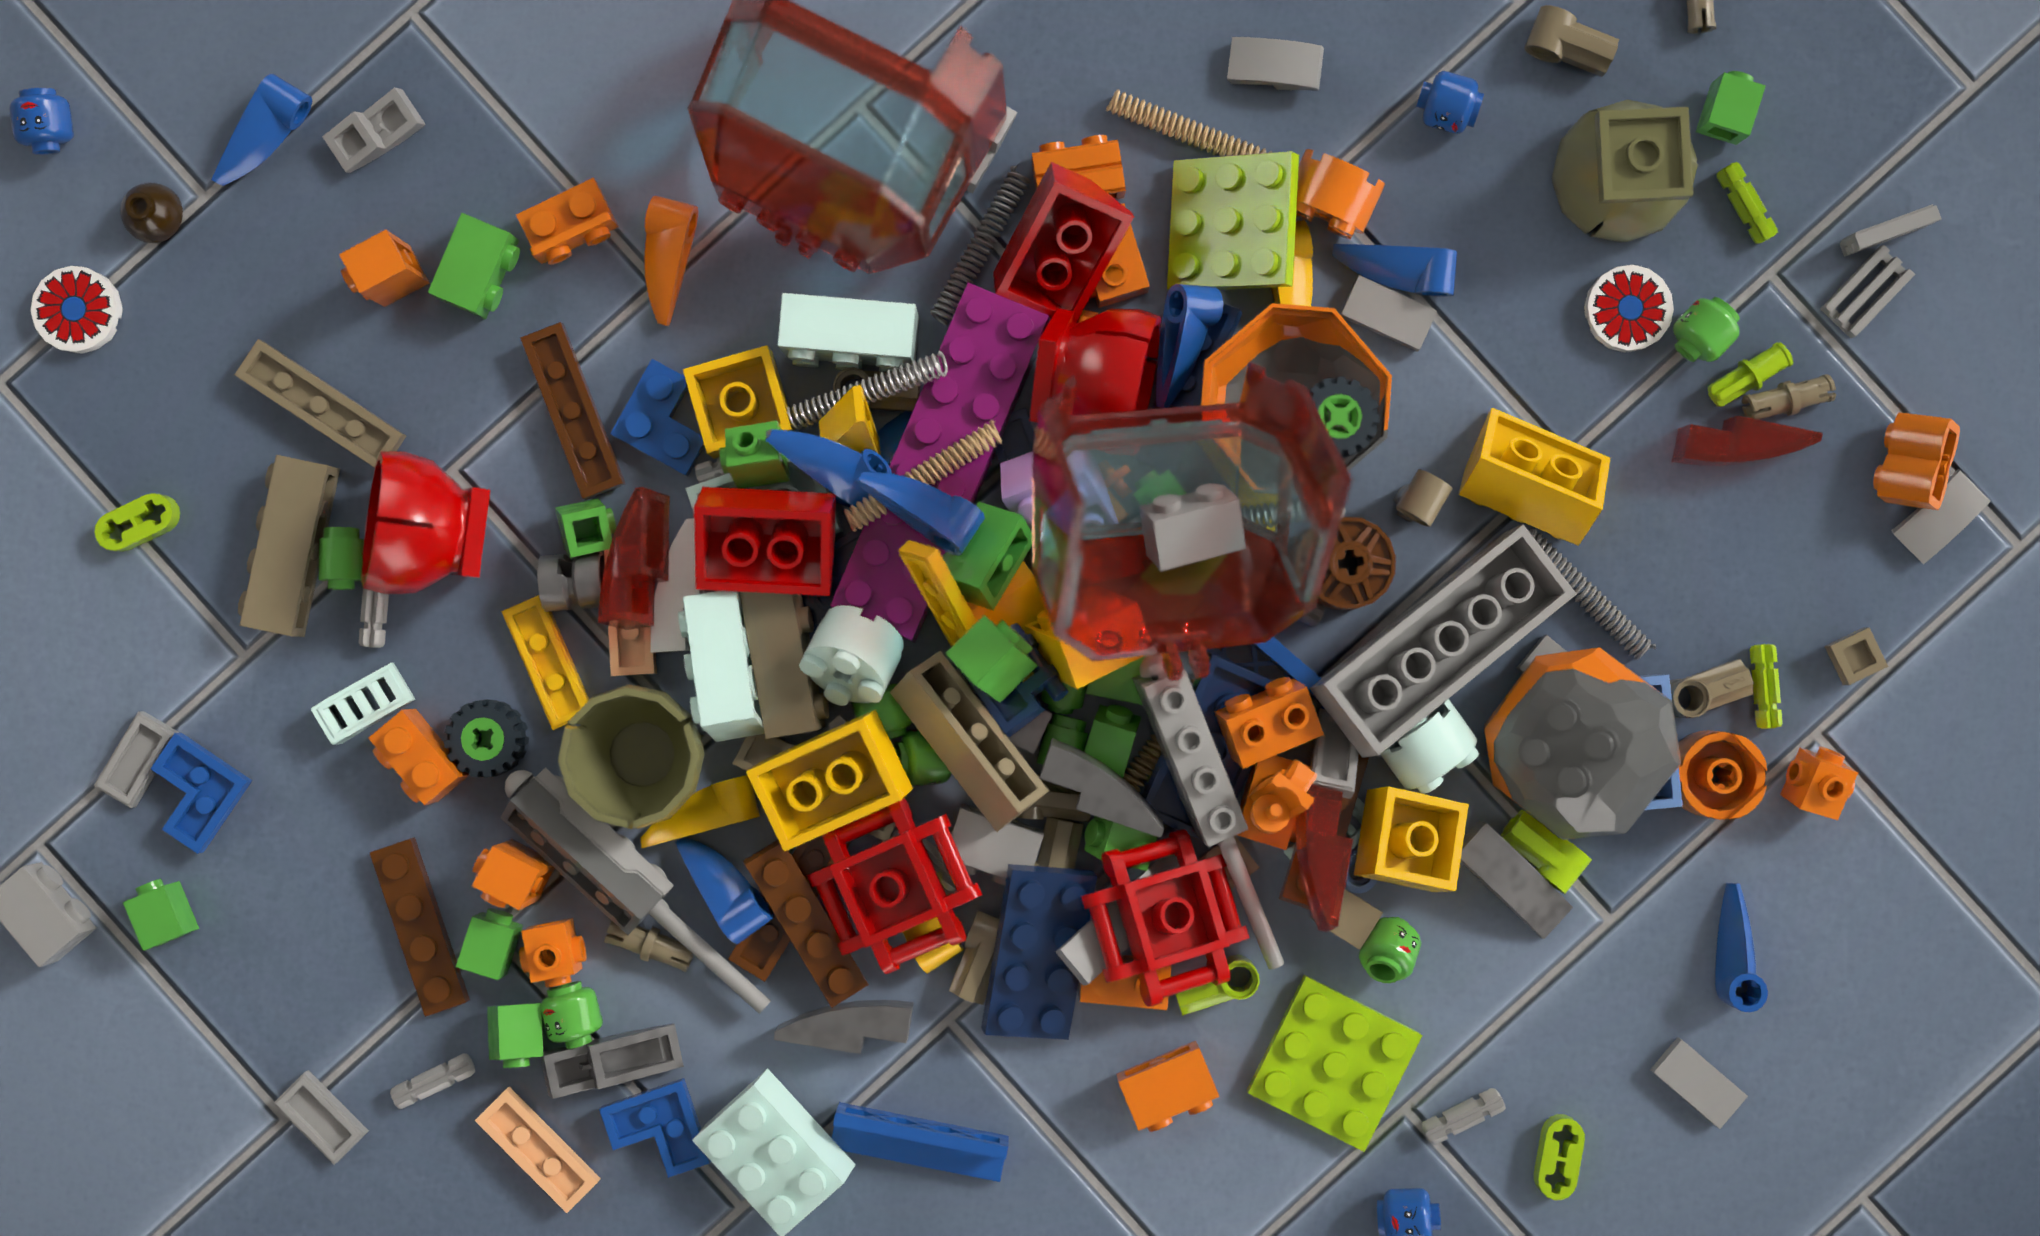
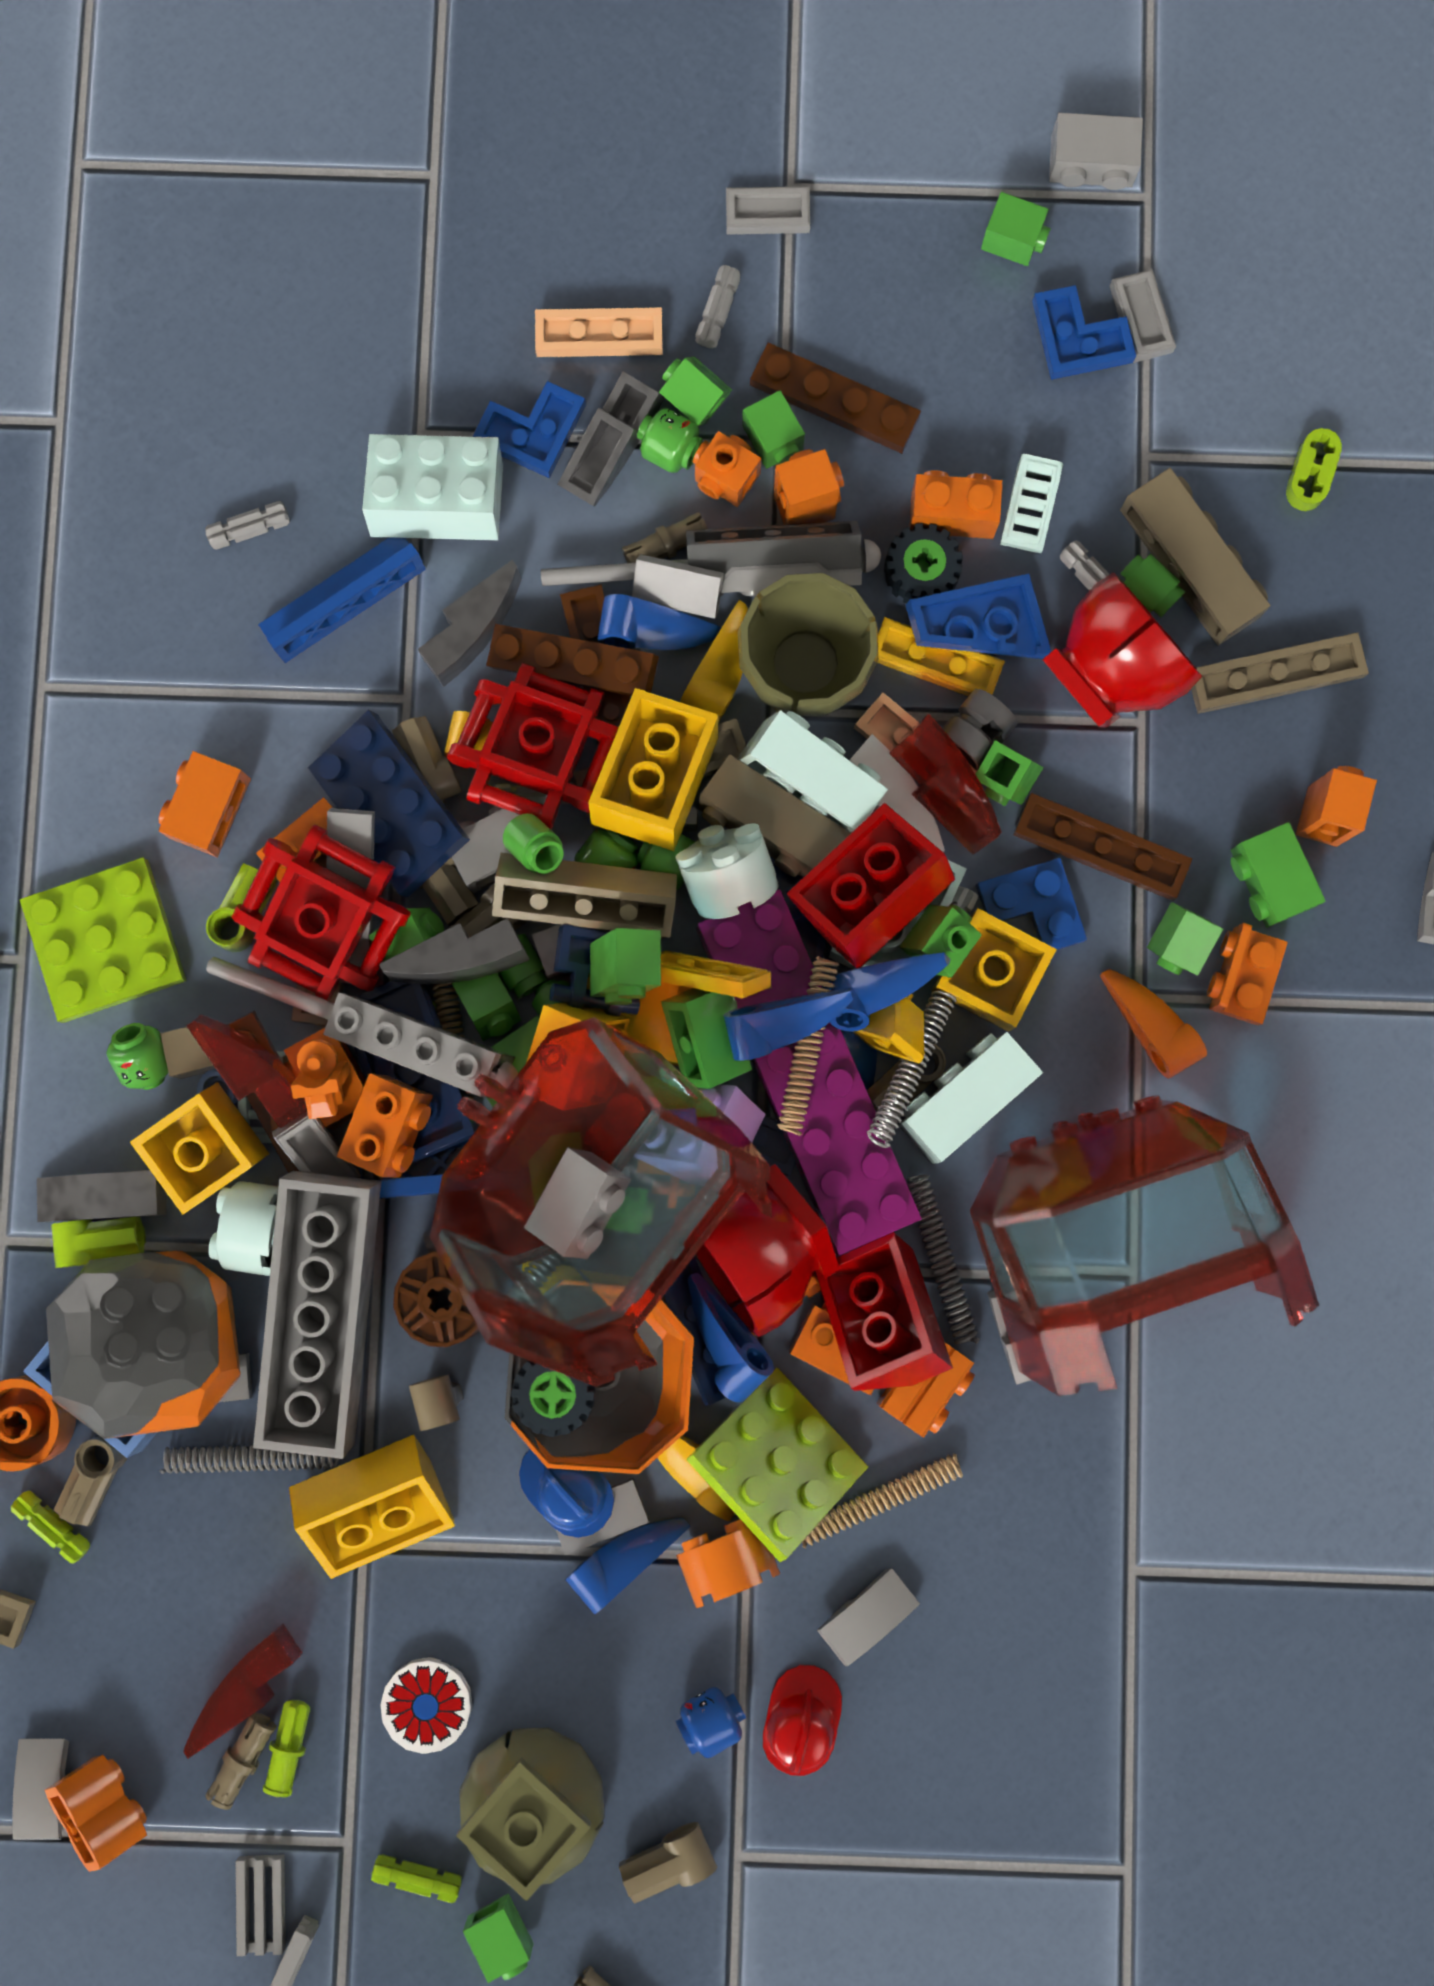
camera: 135 degrees right, 5 degrees down
(485, 655) = (982, 618): none -> blue wing
(586, 288) = (1183, 940): none -> bright green brick
(676, 898) = (678, 586): none -> tile
(969, 811) = (533, 844): none -> bright green brick
(1388, 43) = (802, 1720): none -> red piece
(1400, 344) = (570, 1500): none -> blue piece
(1706, 329) = (351, 1748): bright green head -> none

